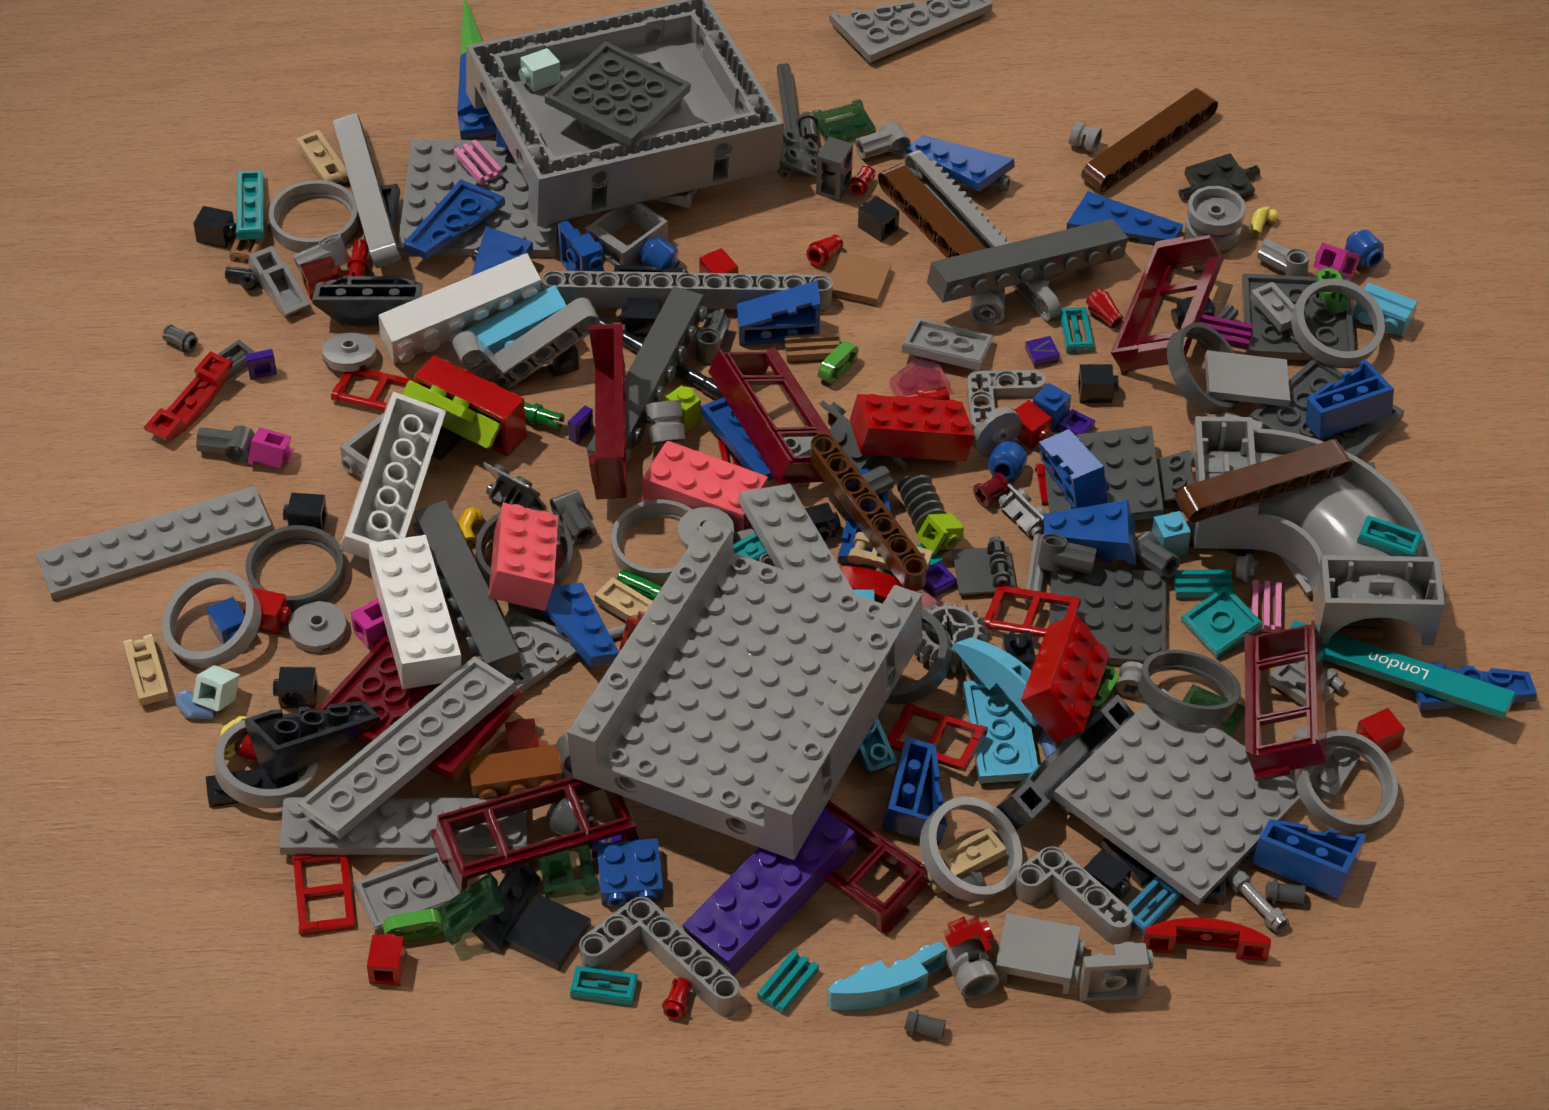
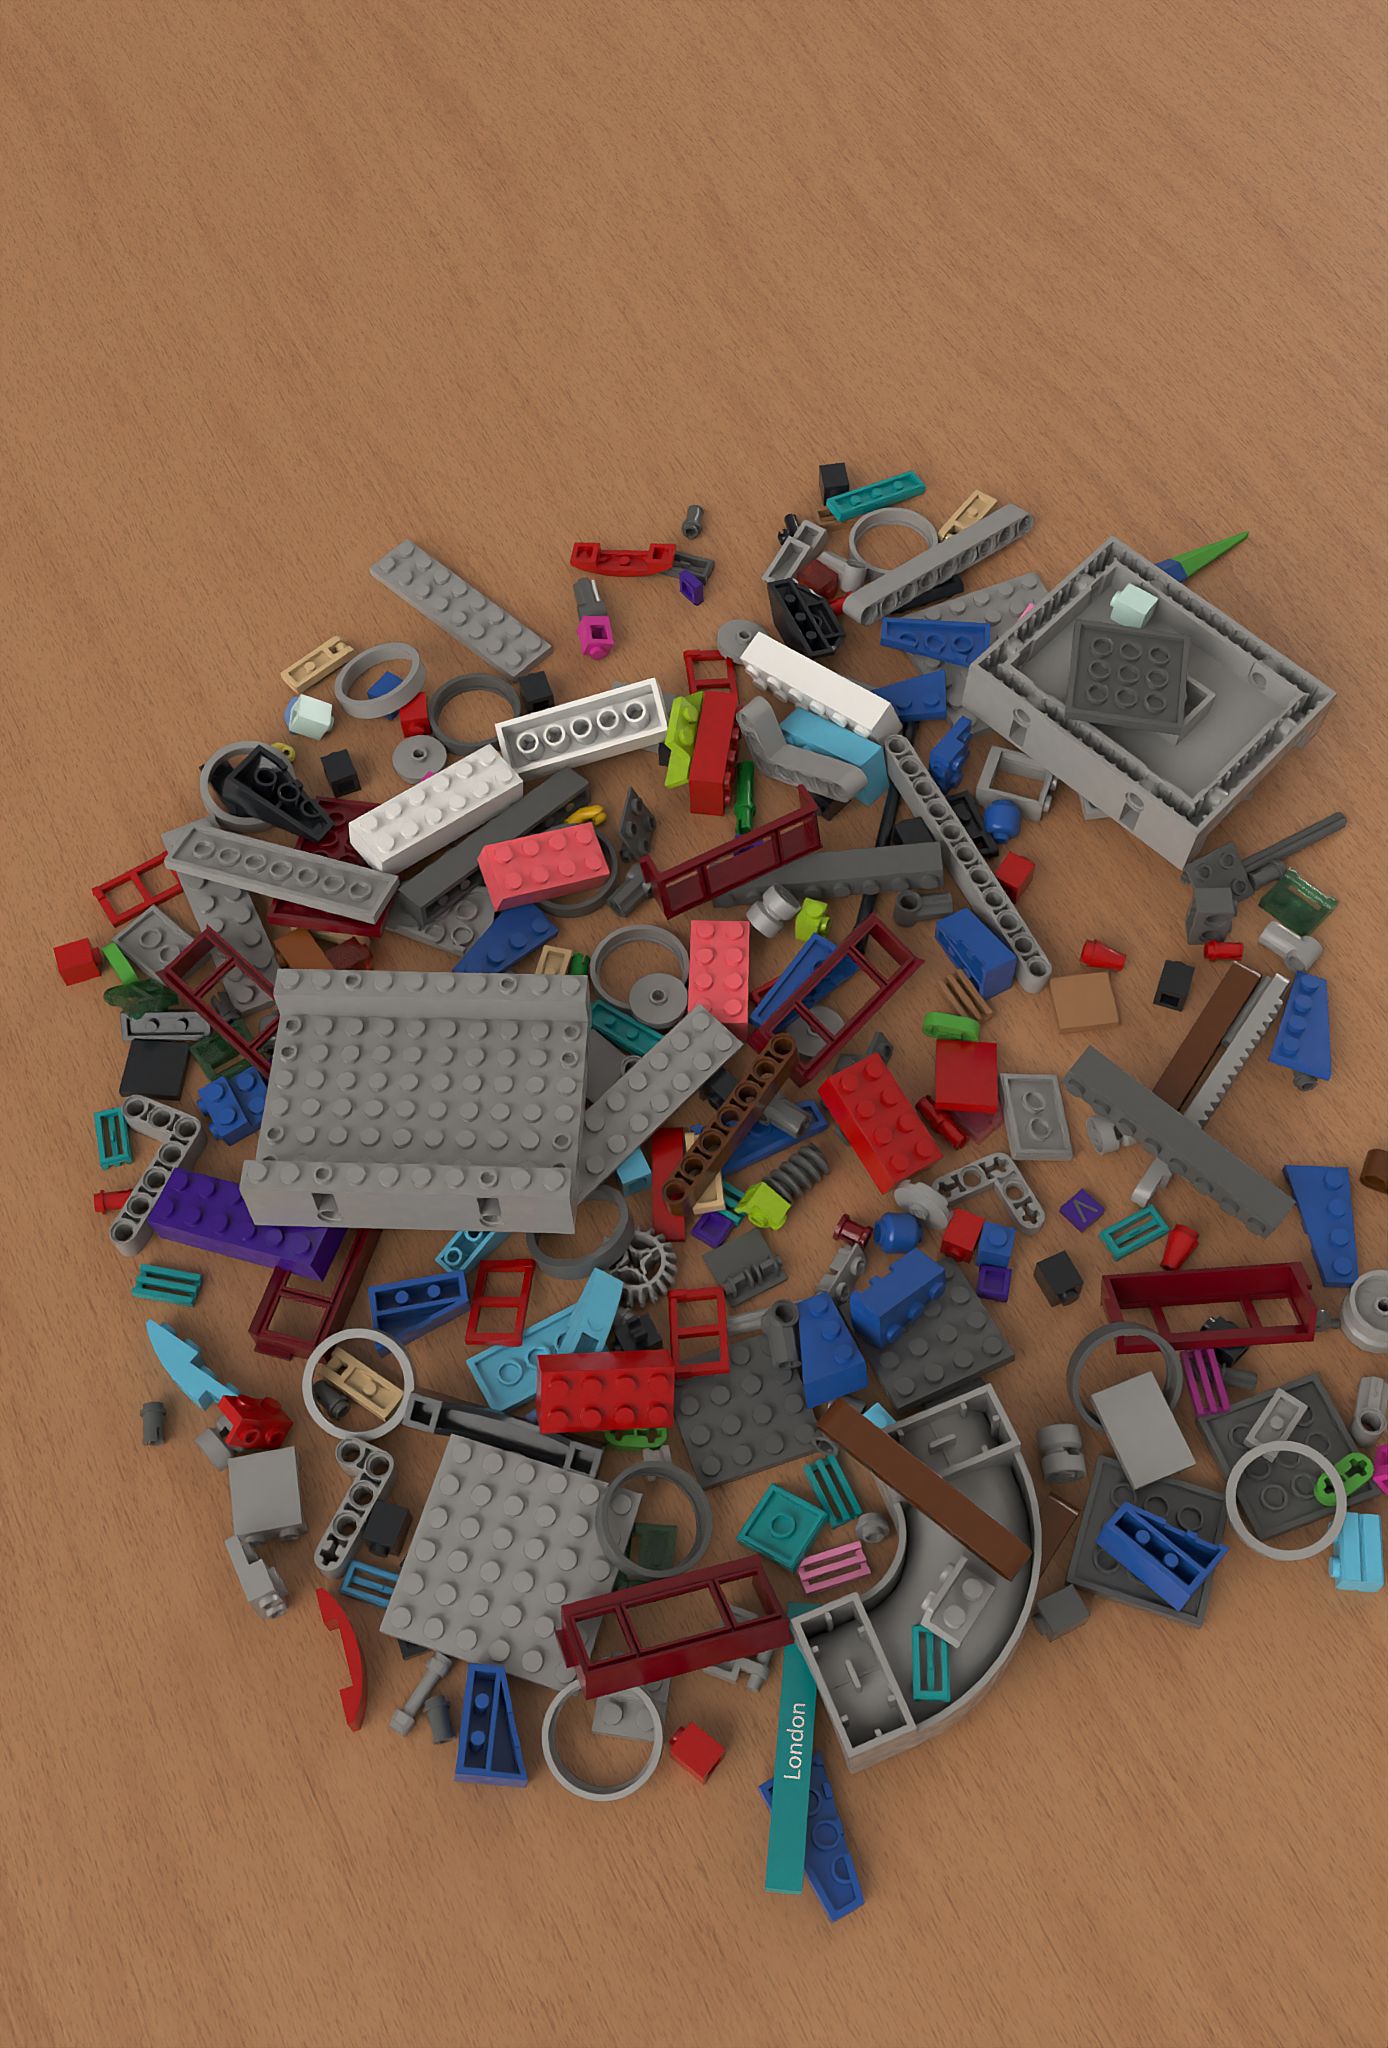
camera: 70 degrees right, 10 degrees up
(890, 367) = (966, 1076): none -> red tile
(1355, 501) = (957, 1603): none -> light grey bracket

